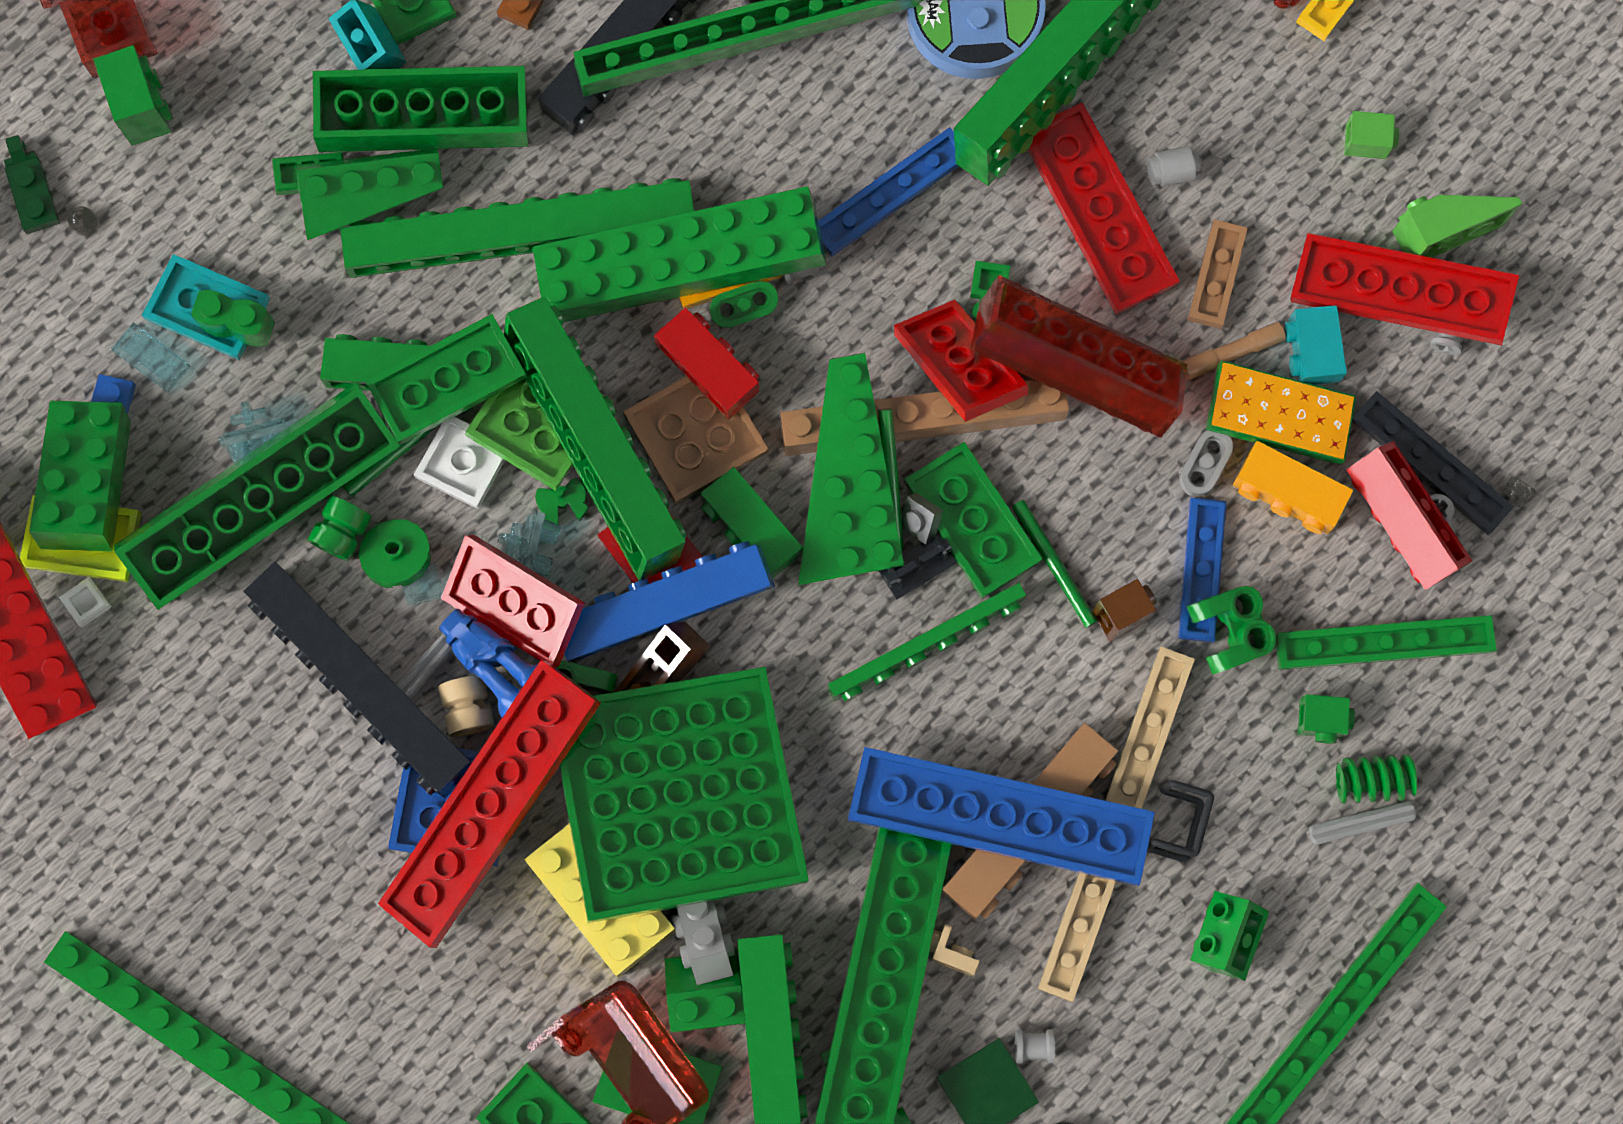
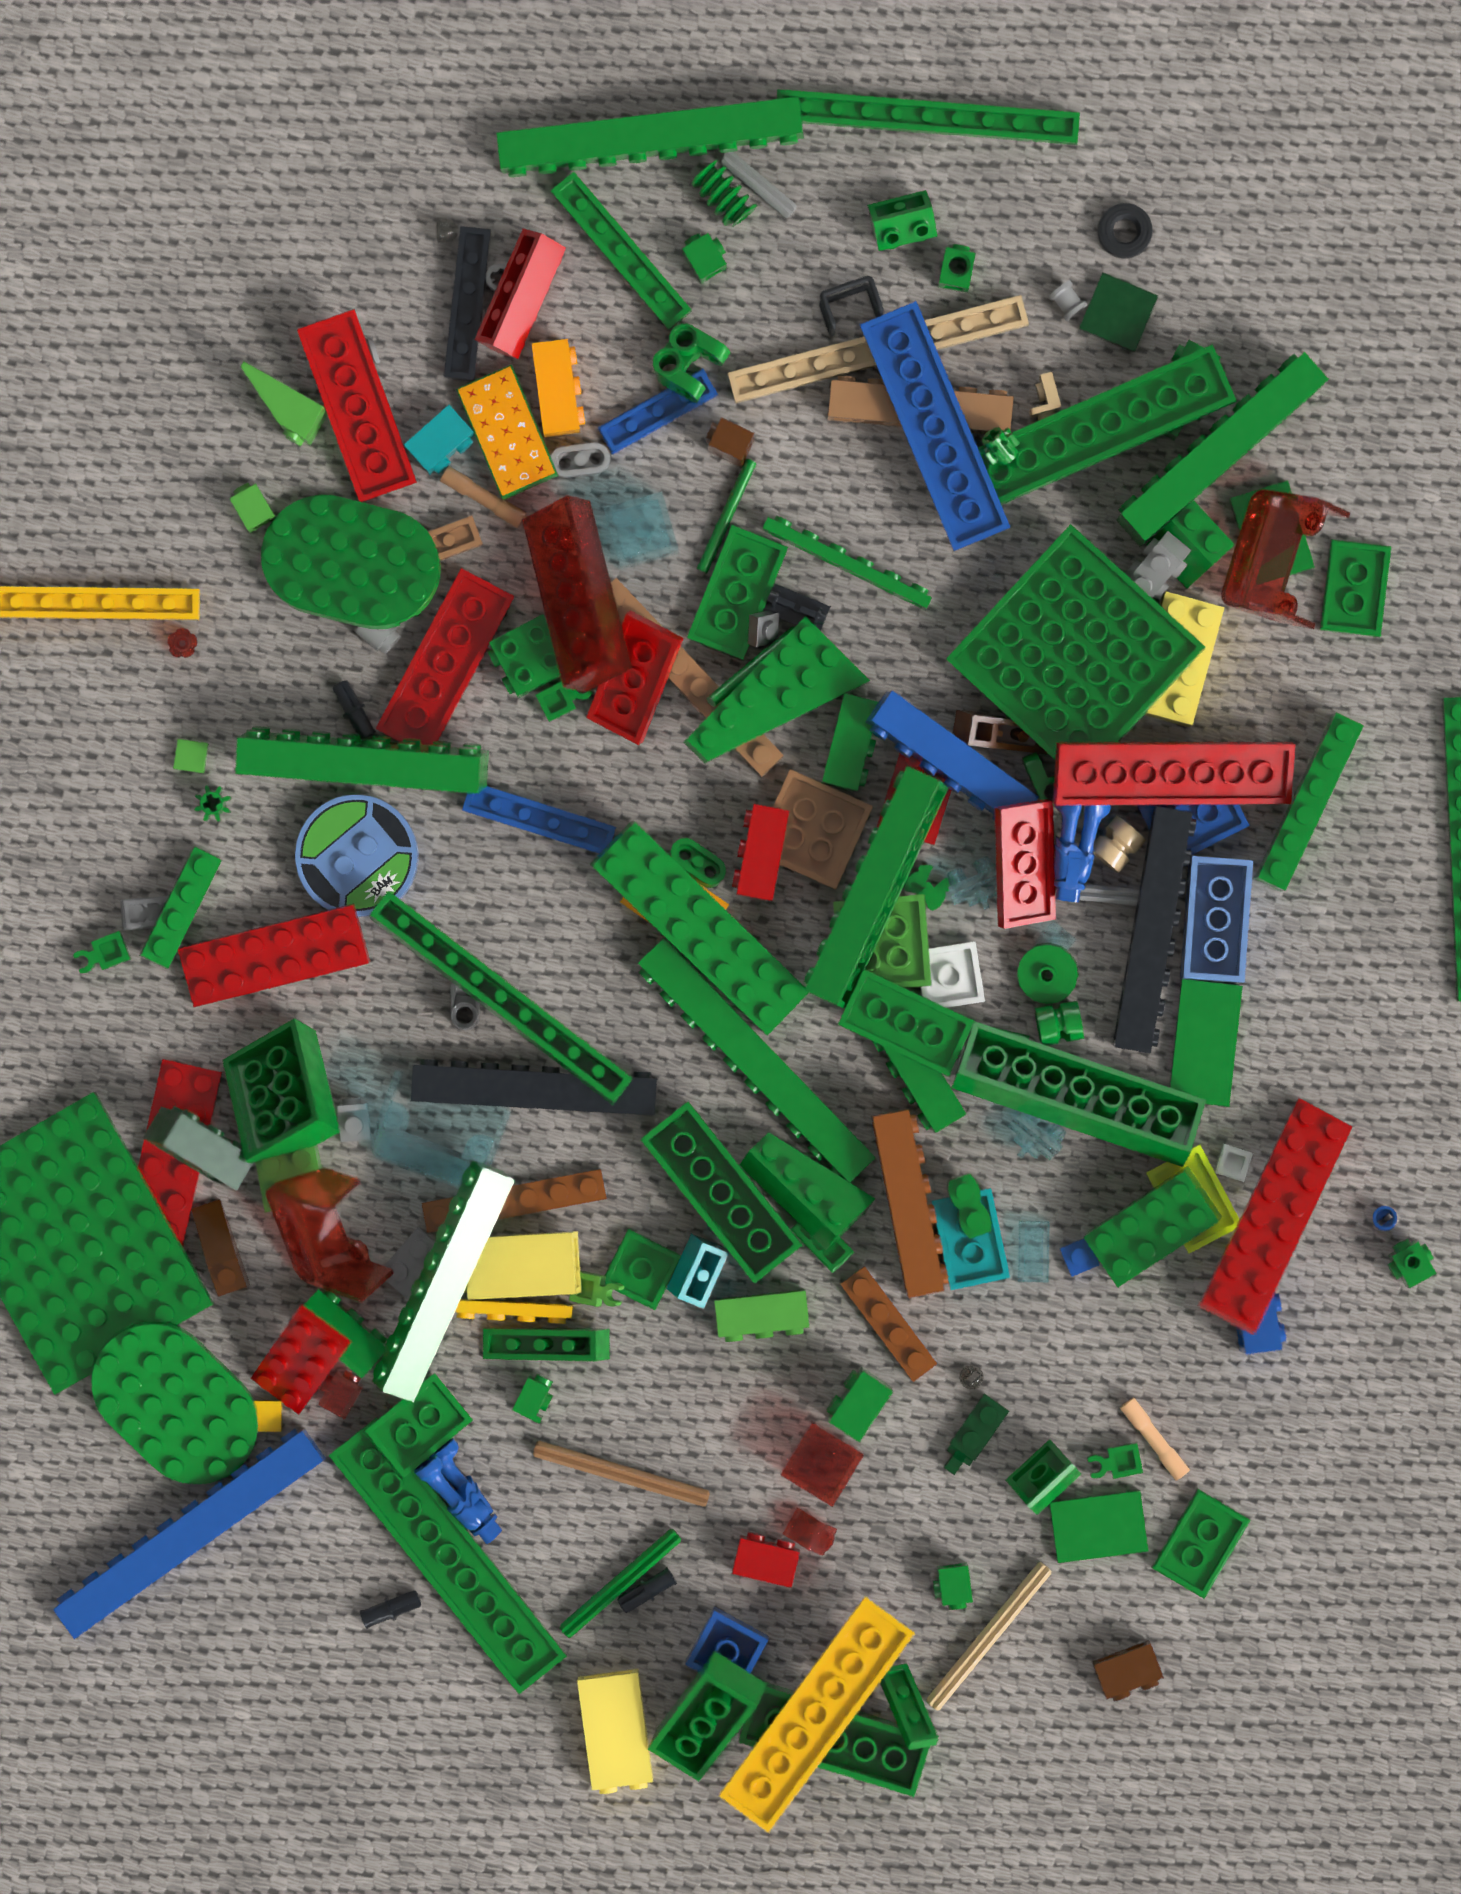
camera: 125 degrees left, 10 degrees up
(189, 181) = (888, 1323): none -> dark orange plate
(217, 657) = (1206, 1040): none -> green tile
(280, 267) = (908, 1203): none -> dark orange brick
(285, 72) = (762, 1315): none -> bright green brick
(321, 748) = (1216, 919): none -> medium blue brick
(366, 923) = (1309, 802): none -> green brick
(935, 865) = (1000, 446): none -> green gear
(1054, 272) = (526, 657): none -> green brick
(1097, 470) = (641, 530): none -> clear light blue brick
(1114, 98) = (353, 709): none -> black axle
(1127, 952) = (953, 281): none -> green brick
(1256, 184) = (350, 561): none -> green plate
(1481, 750) = (650, 136): none -> green brick

